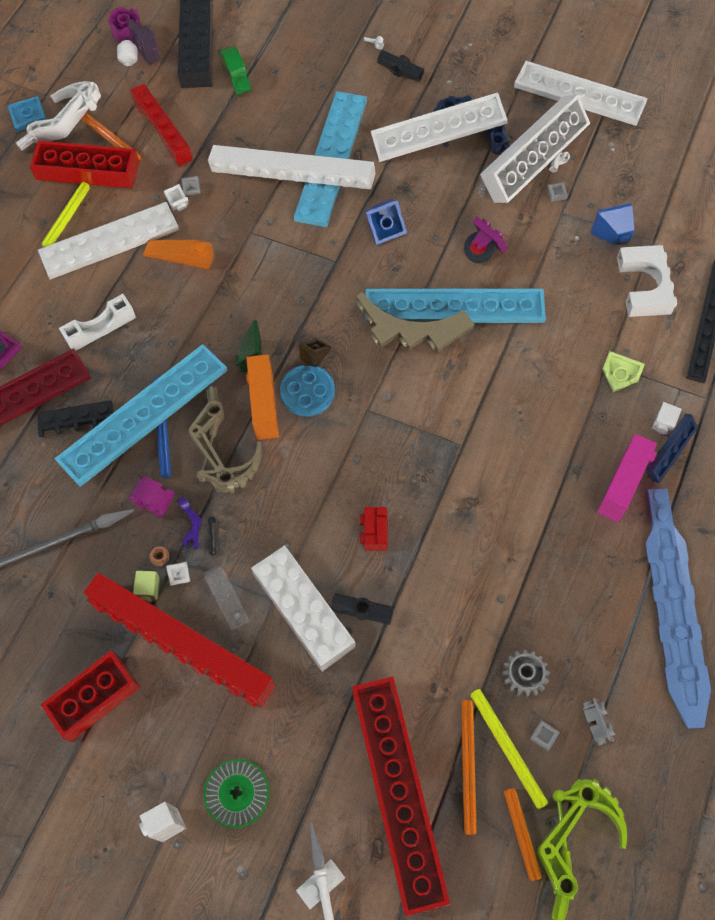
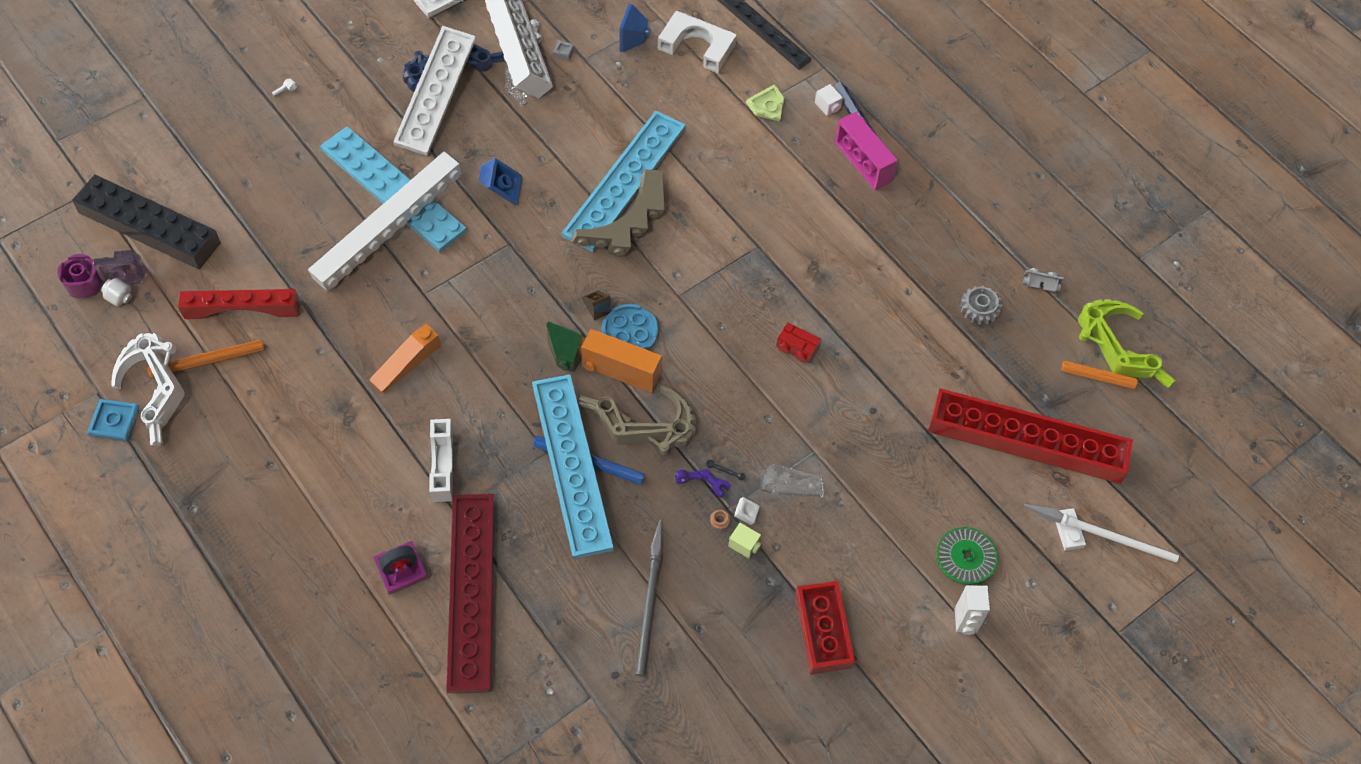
camera: 65 degrees left, 5 degrees down
(66, 214) = (281, 438): neon yellow axle -> none
(73, 417) = (527, 528): black hinge -> none
(85, 164) = (236, 390): red brick -> none
(108, 240) = (341, 415): white plate -> none
(151, 496) = (661, 494): magenta brick -> none
(176, 198) = (341, 332): white bracket -> none
(180, 640) = (813, 533): red brick -> none
(191, 186) = (335, 314): light grey tile -> none
(235, 66) = (222, 204): green arch -> none
(303, 608) = (838, 428): white brick -> none
(348, 606) = (856, 394): black piece -> none
(400, 65) = (333, 83): black piece -> none
(468, 758) = (1031, 382): orange axle -> none
(481, 244) = (580, 123): plate -> none
(509, 749) = (1030, 349): neon yellow axle -> none
(544, 735) = (1033, 321): light grey tile -> none
(678, 629) = (983, 185): medium blue plate -> none

